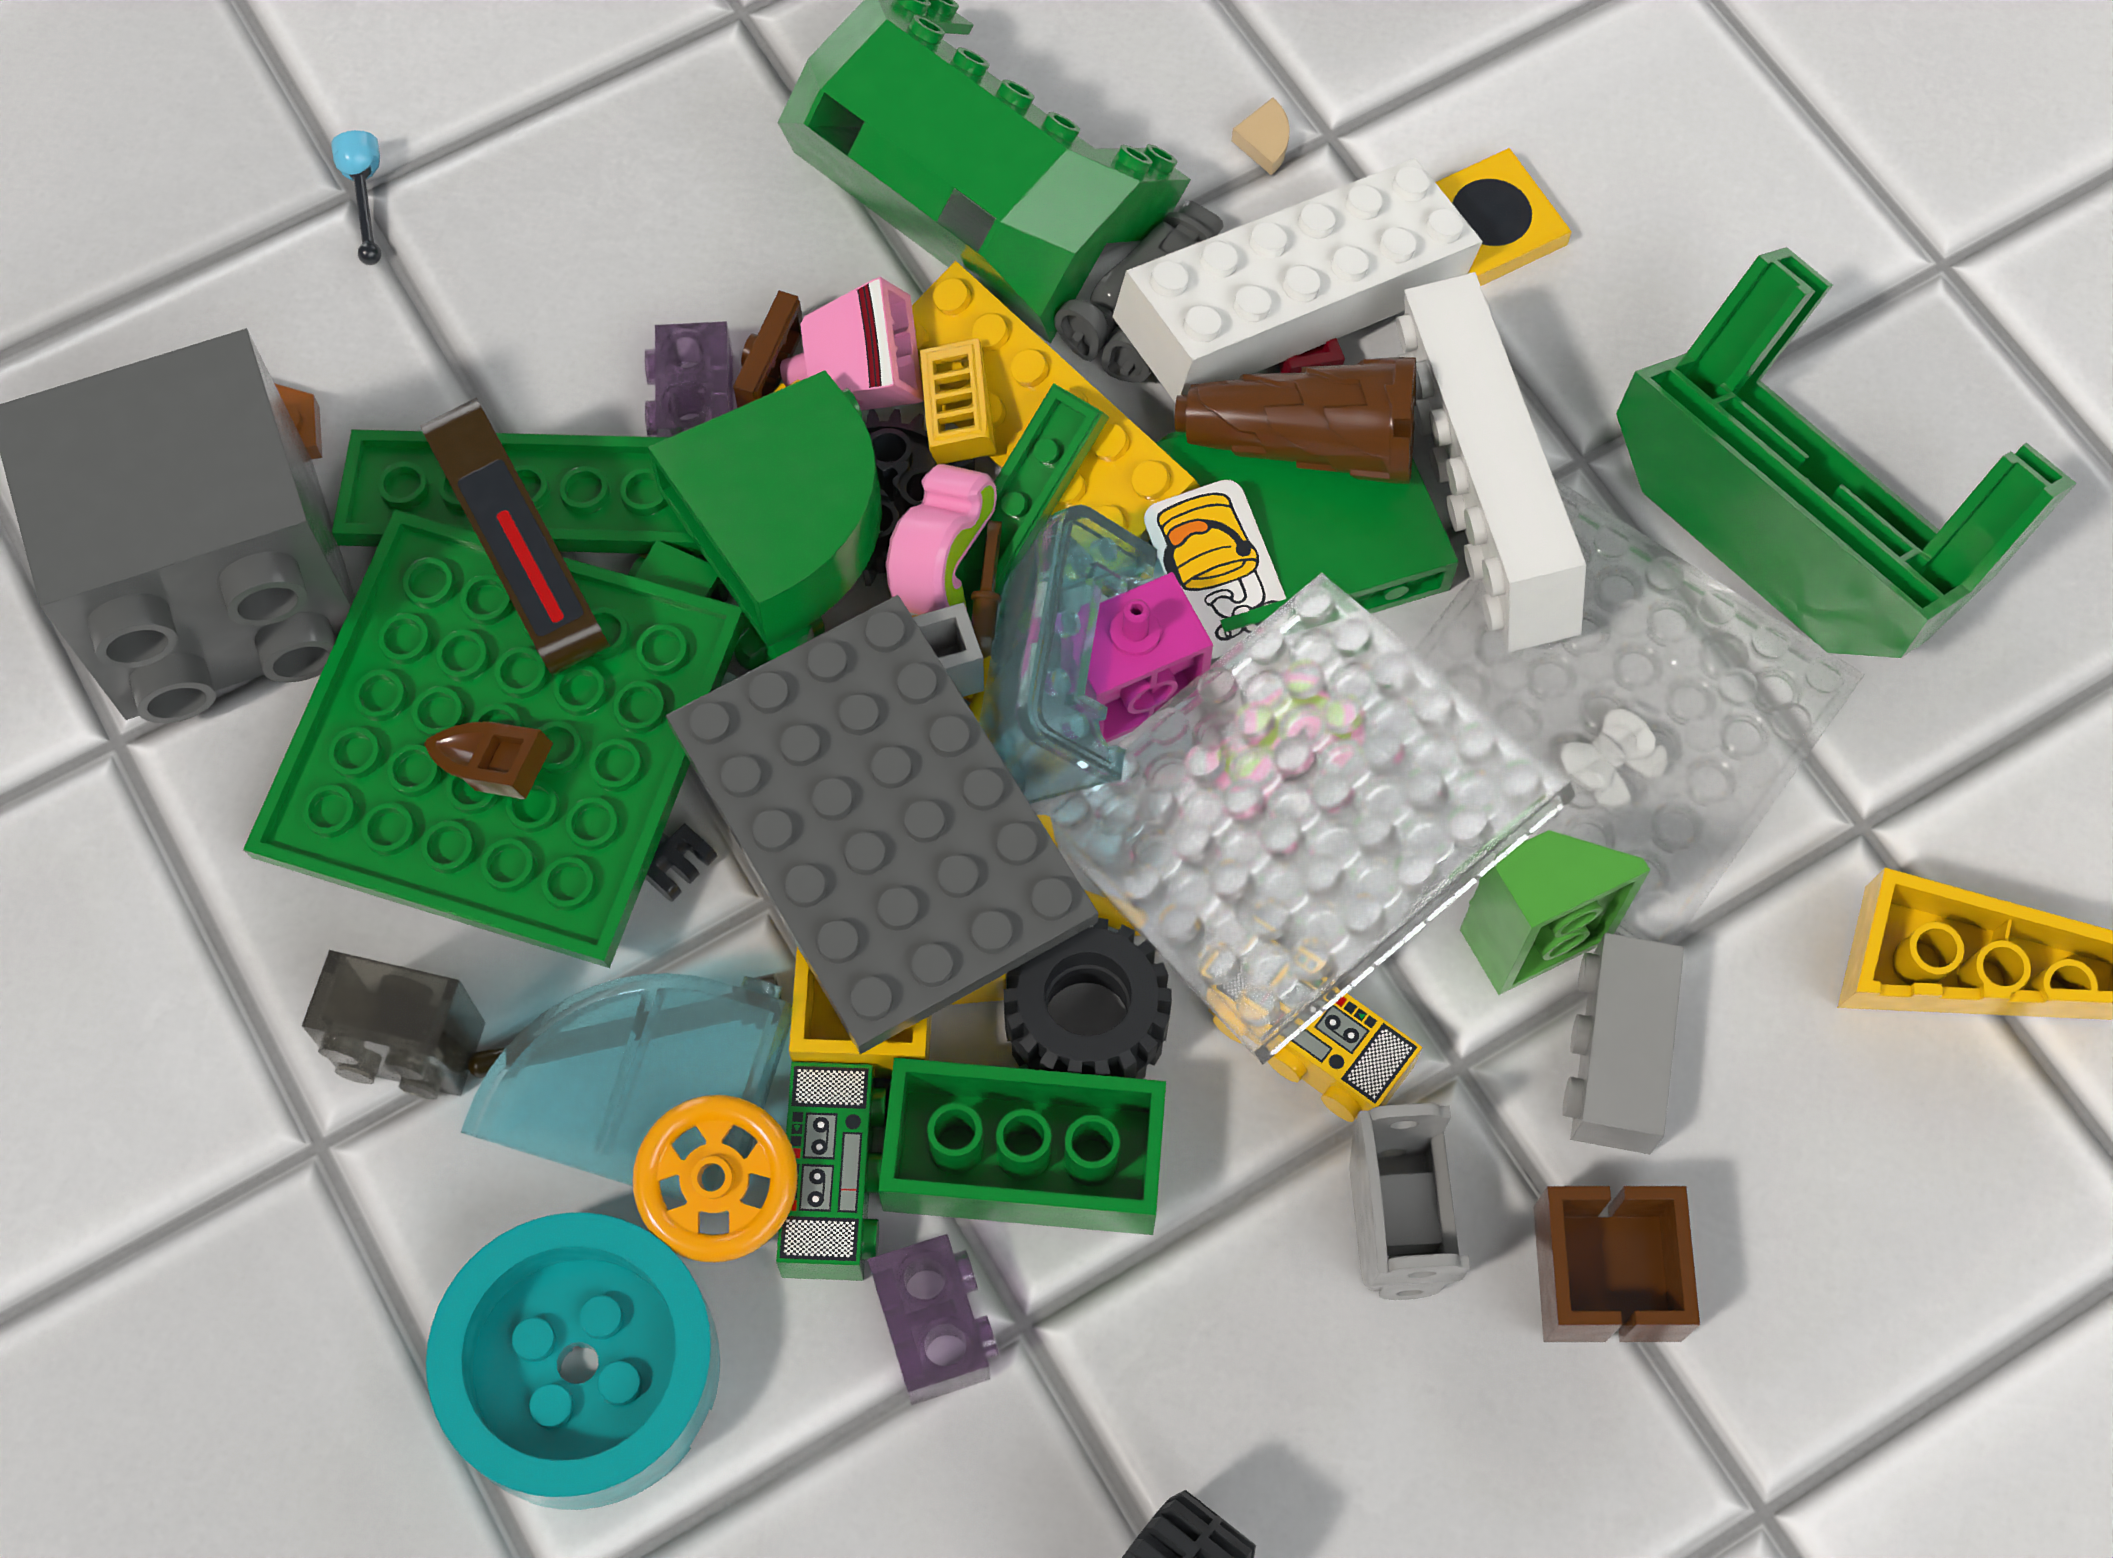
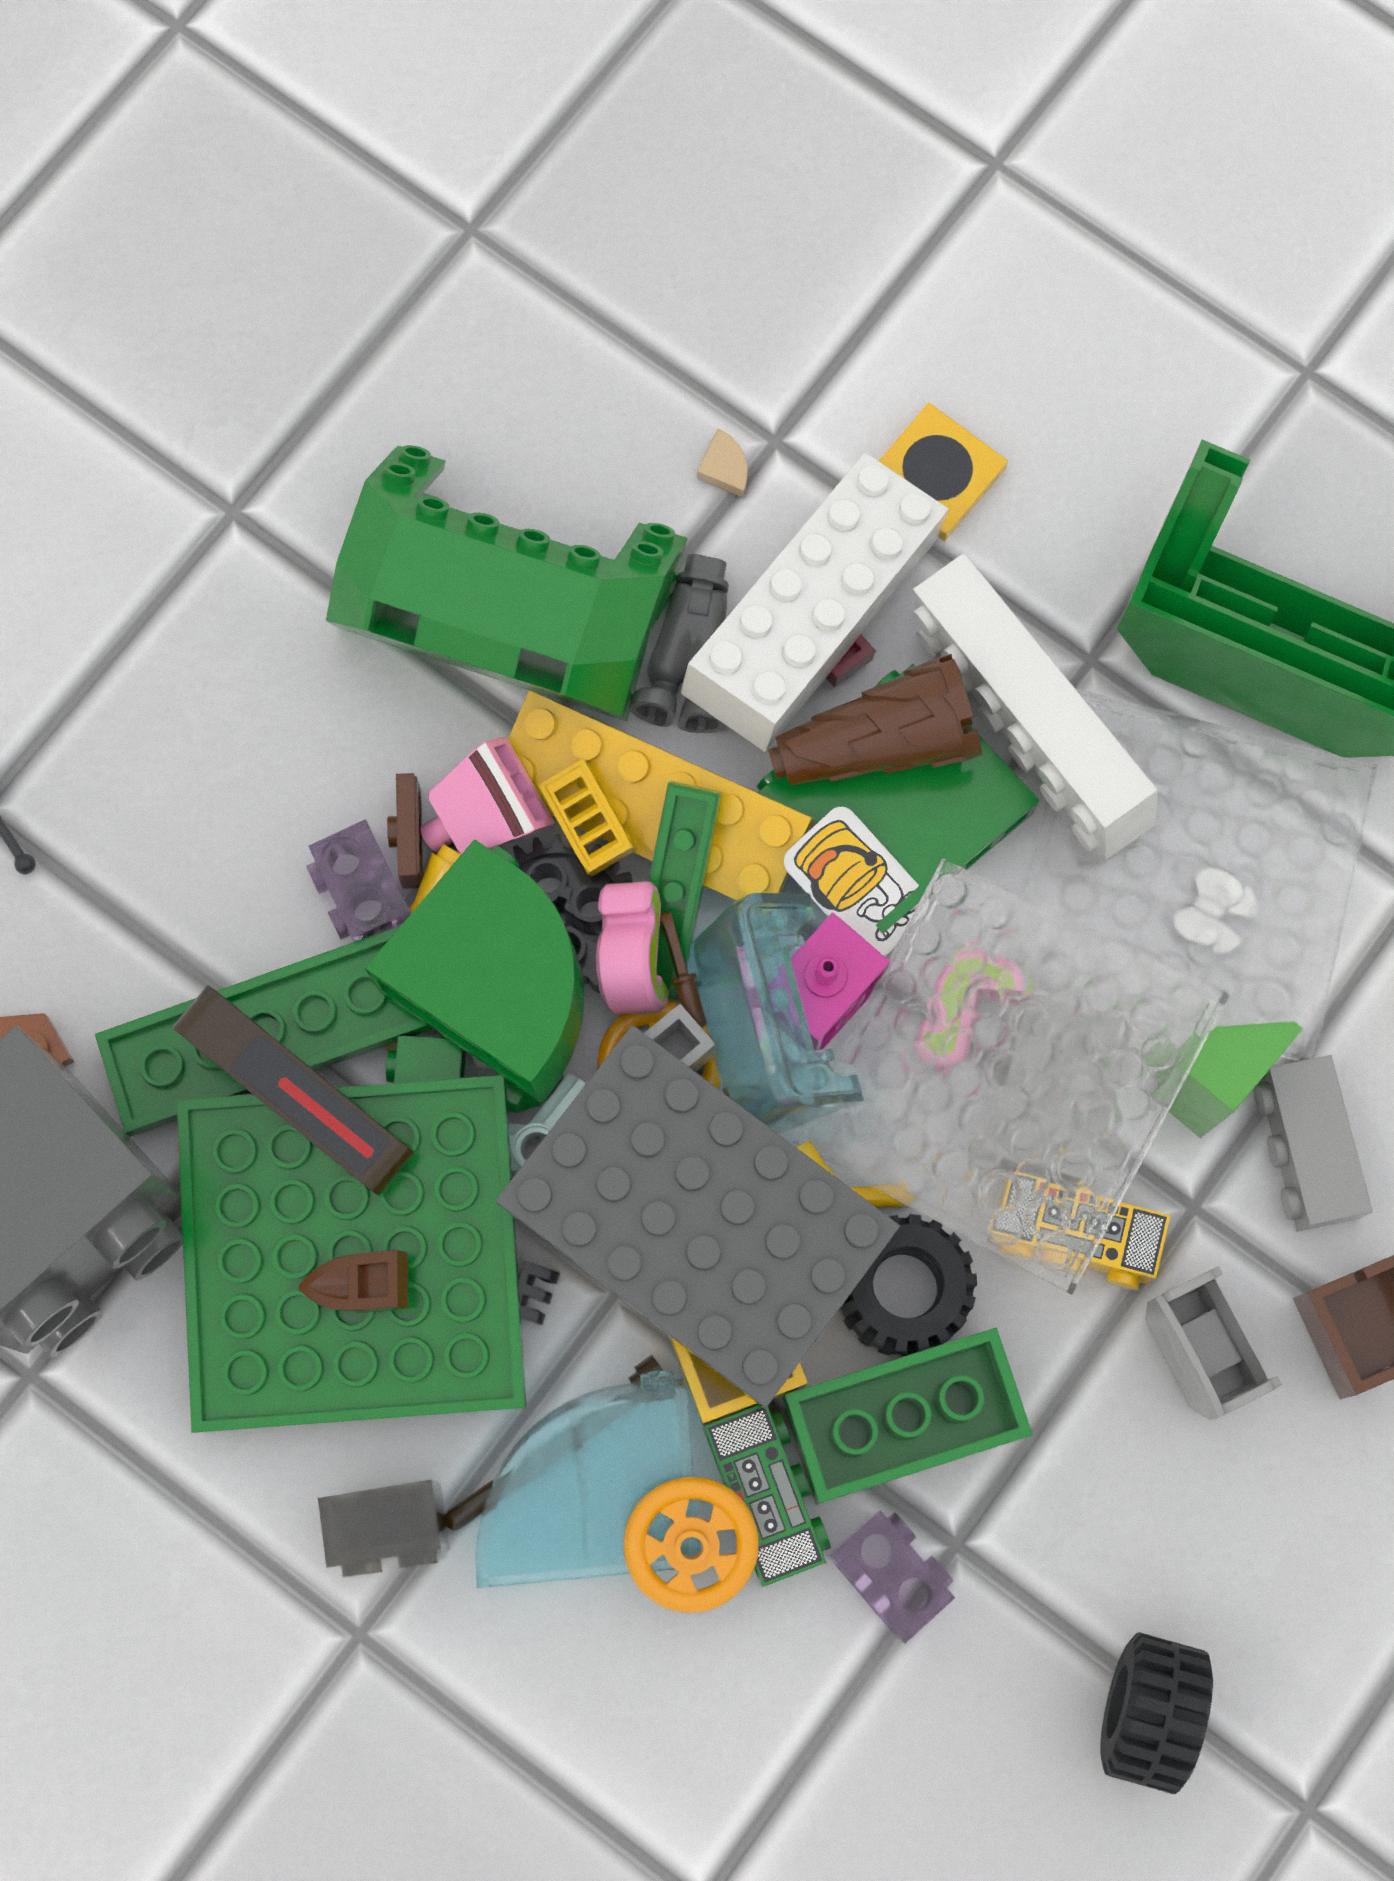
camera: 25 degrees left, 10 degrees up
(515, 1320) = (629, 1783): teal brick -> none

